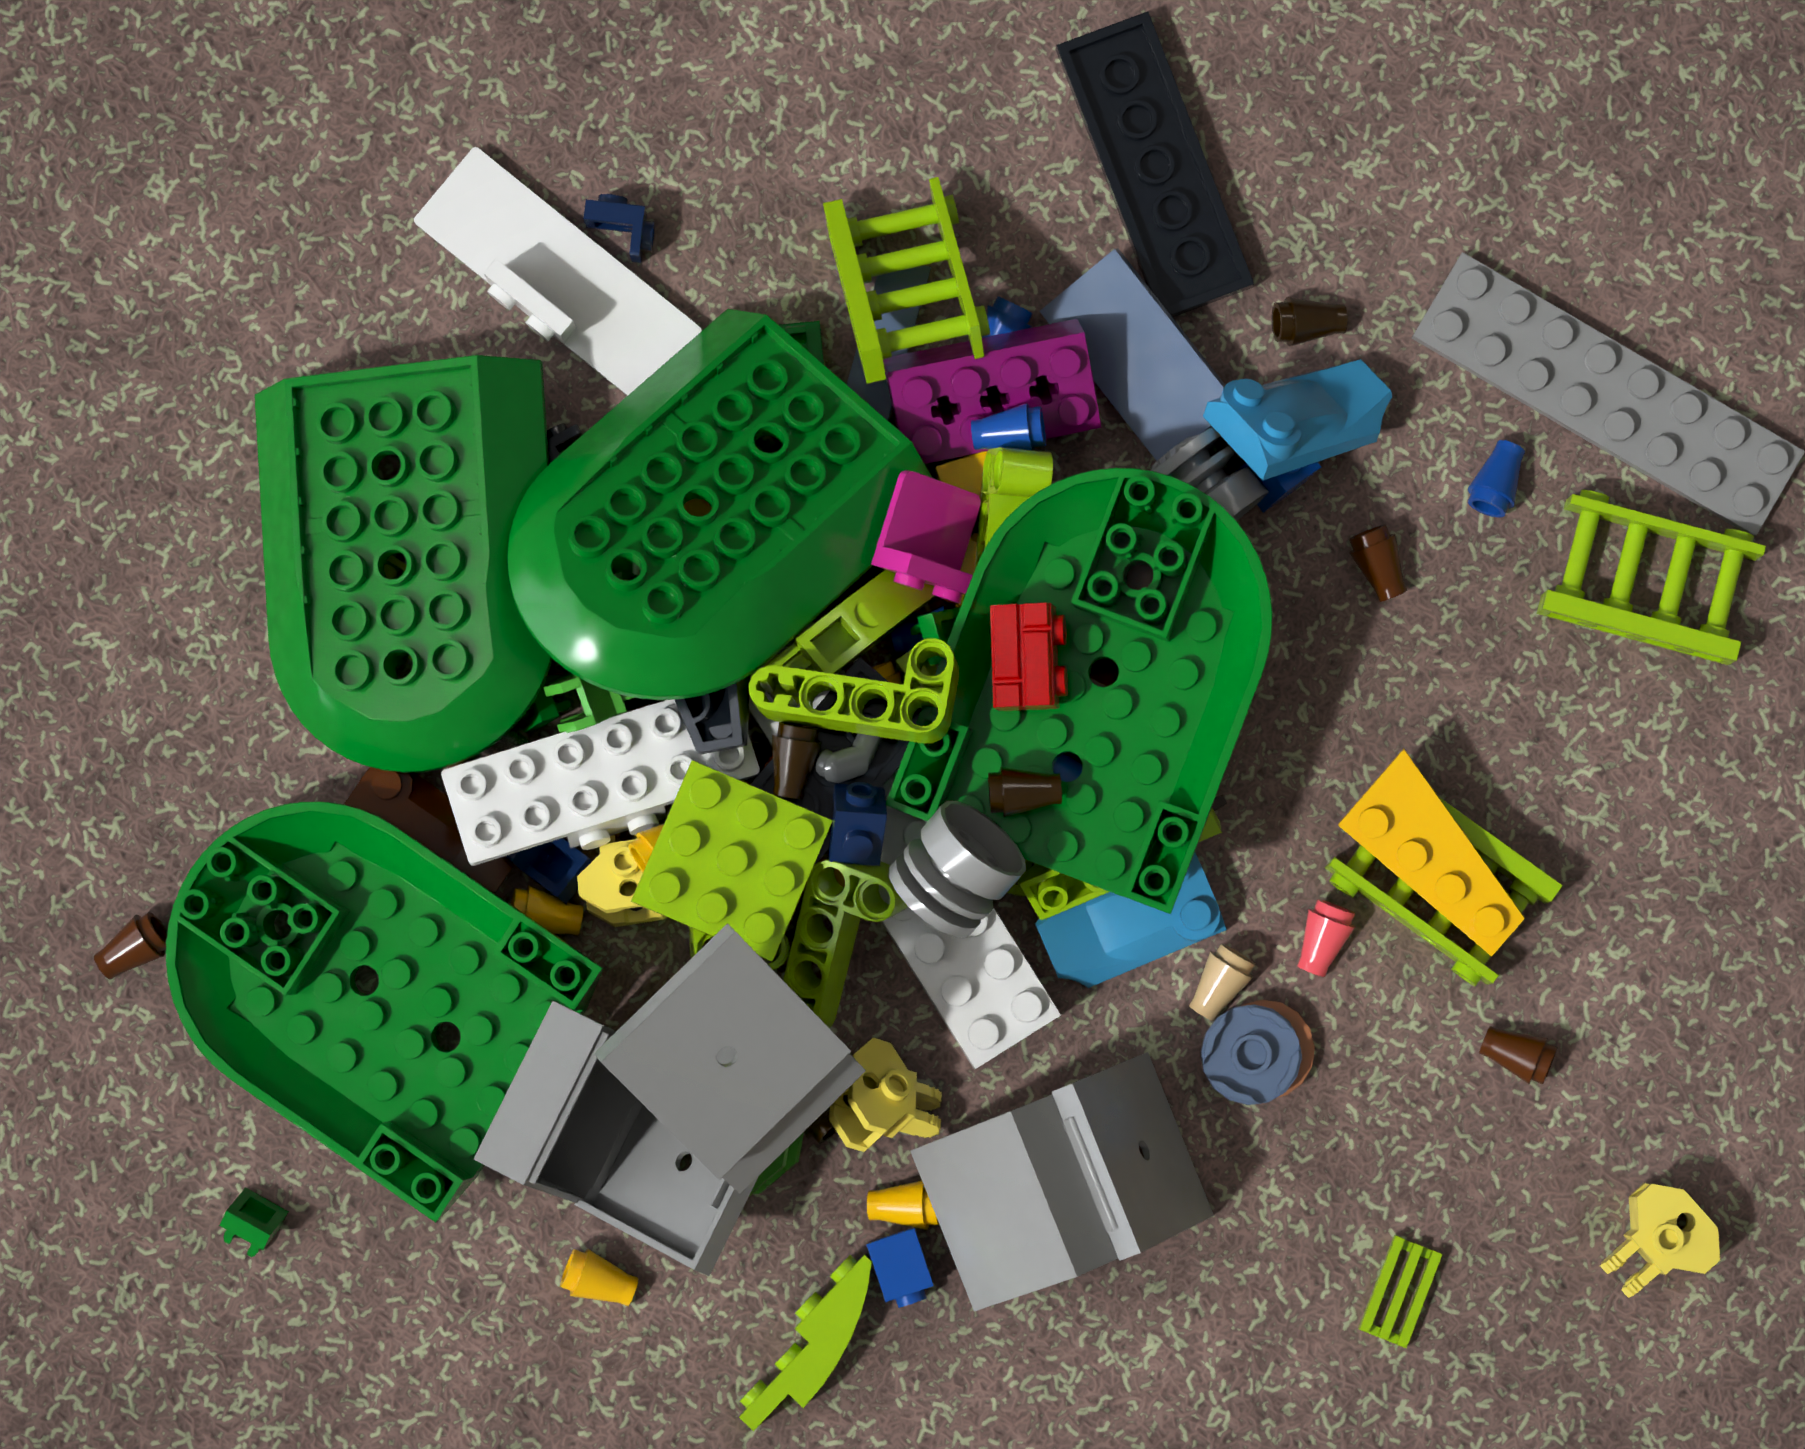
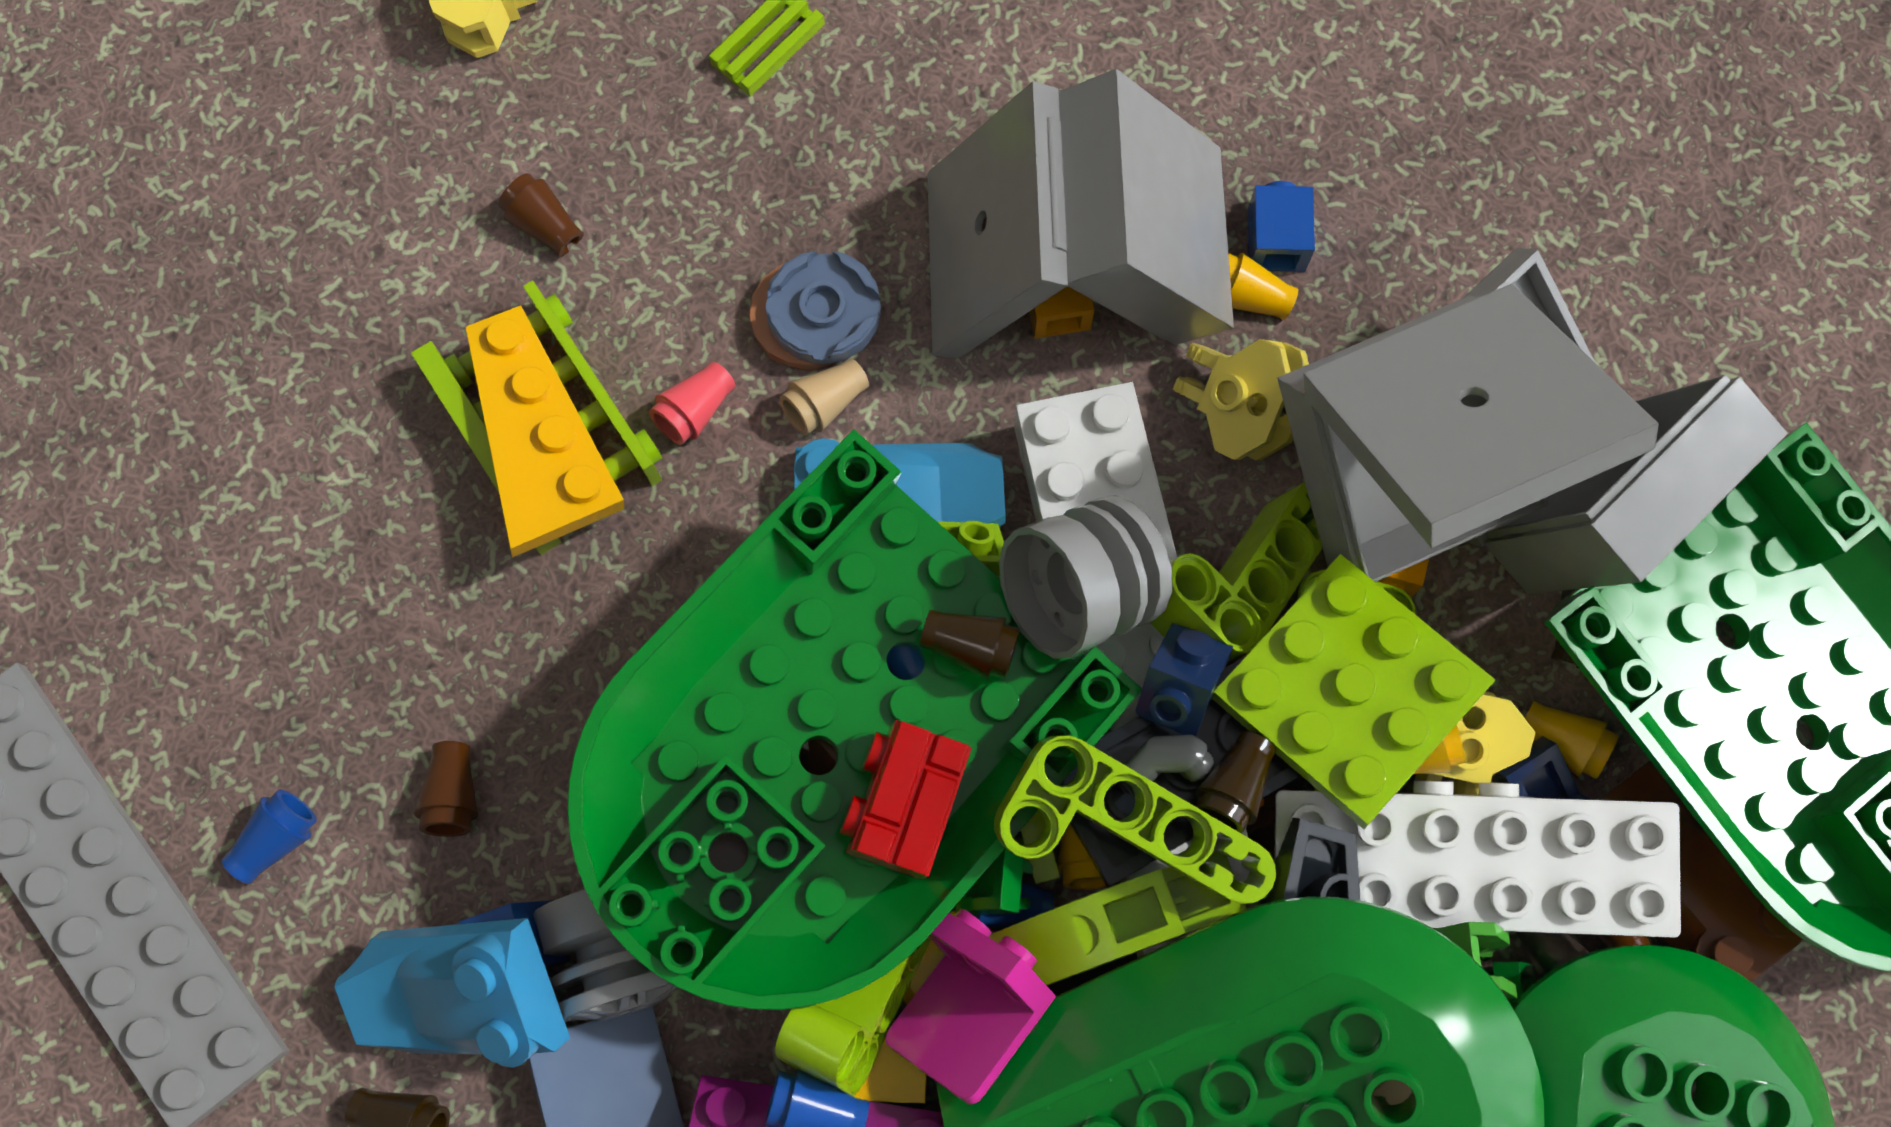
camera: 155 degrees left, 10 degrees down
(597, 1279) = (1615, 327): yellow cone -> none
(828, 1328) = (1396, 176): lime slope -> none
(1616, 612) = (166, 598): lime fence -> none

